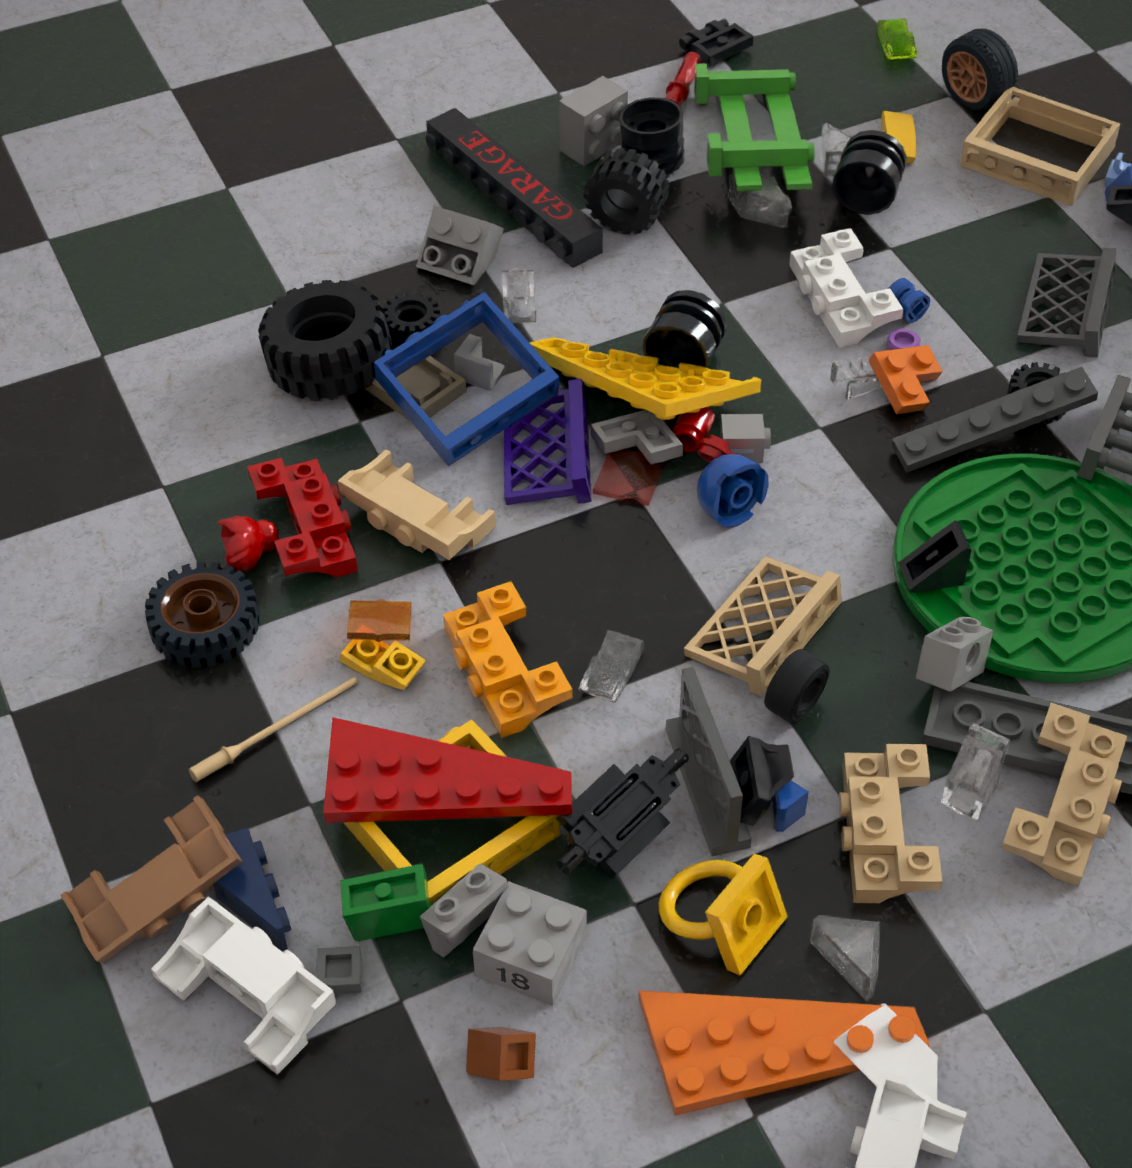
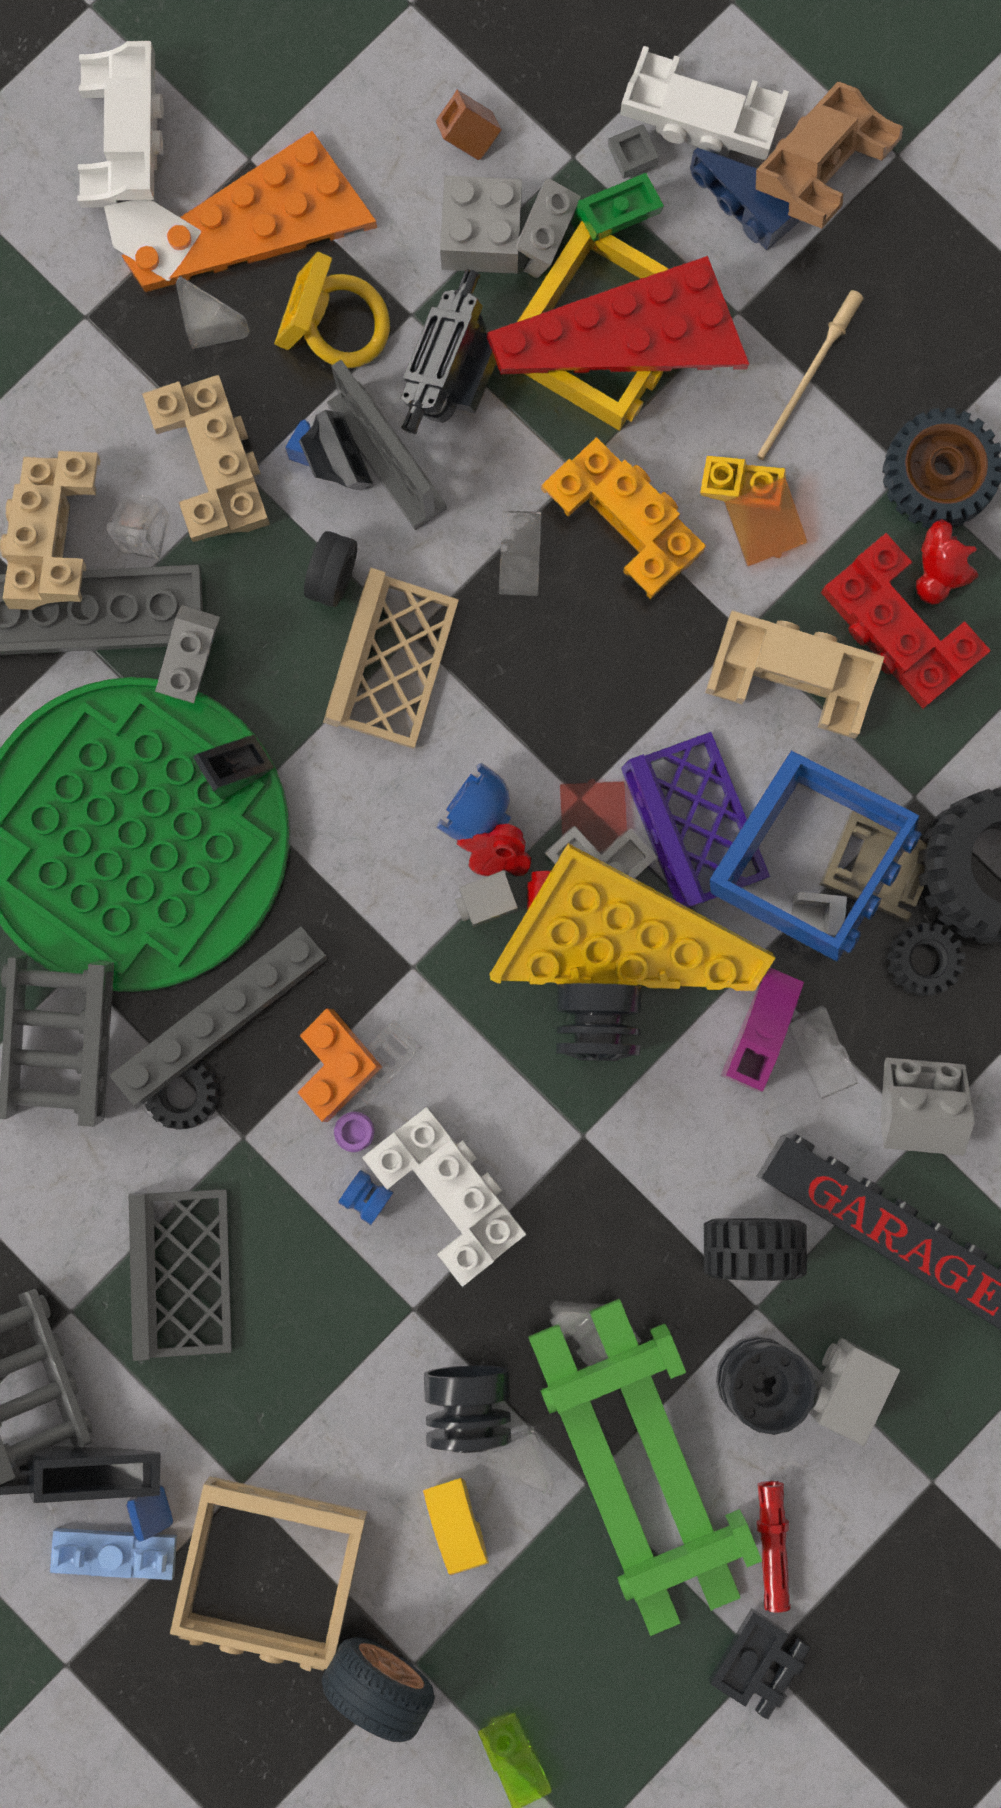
camera: 160 degrees right, 35 degrees up
(563, 303) = (763, 1031): none -> magenta slope

